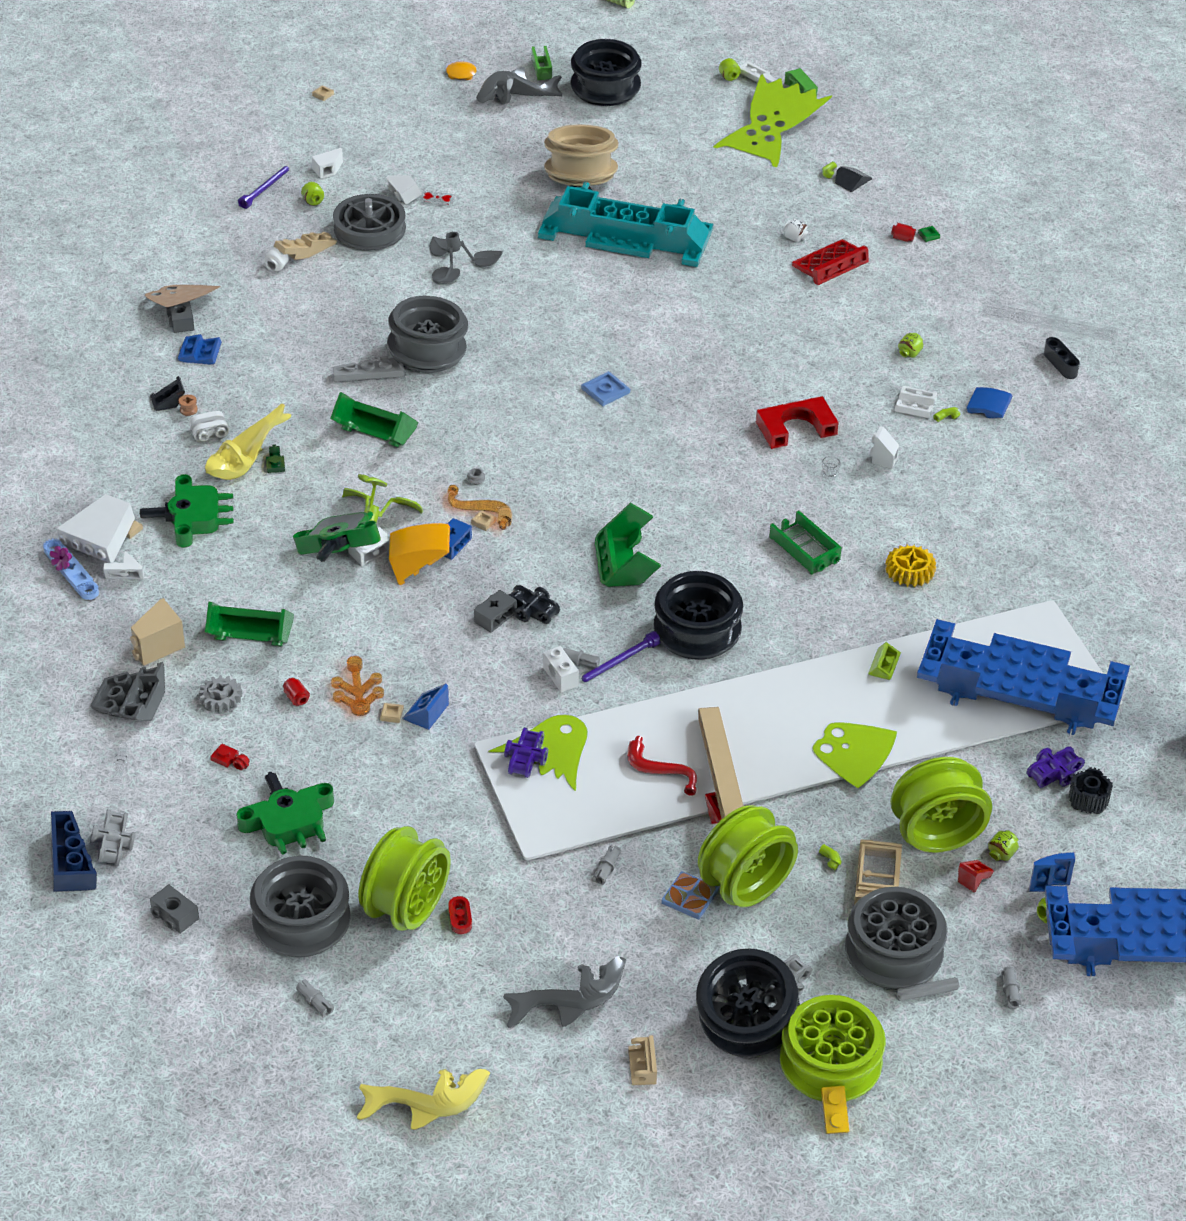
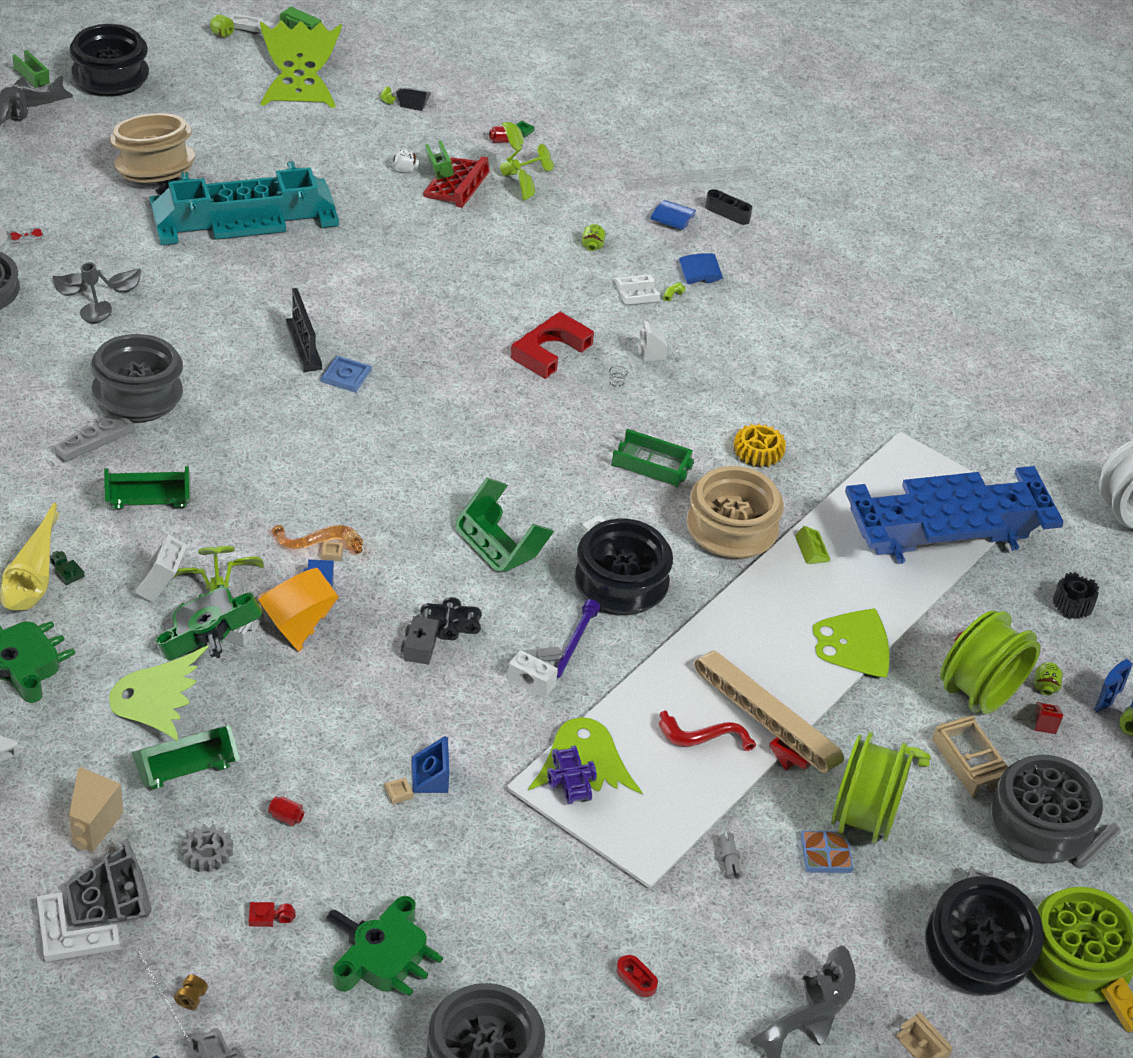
camera: 35 degrees left, 0 degrees up
(75, 715) = (61, 944): none -> white plate
(132, 785) = (190, 994): none -> pearl gold wheel
(265, 572) = (156, 693): none -> lime piece
(332, 483) = (161, 568): none -> white window
(360, 705) = (344, 780): clear orange plant -> none
(404, 878) = (580, 963): lime wheel -> none
(476, 476) = (290, 508): light grey plate -> none
(590, 345) = (303, 335): none -> black fence
(822, 245) = (441, 169): none -> bright green window
(831, 608) = (735, 512): none -> tan wheel
(887, 280) = (513, 166): none -> lime plant
(1004, 348) = (673, 214): none -> blue slope
(1055, 767) = (1027, 586): dark purple axle -> none

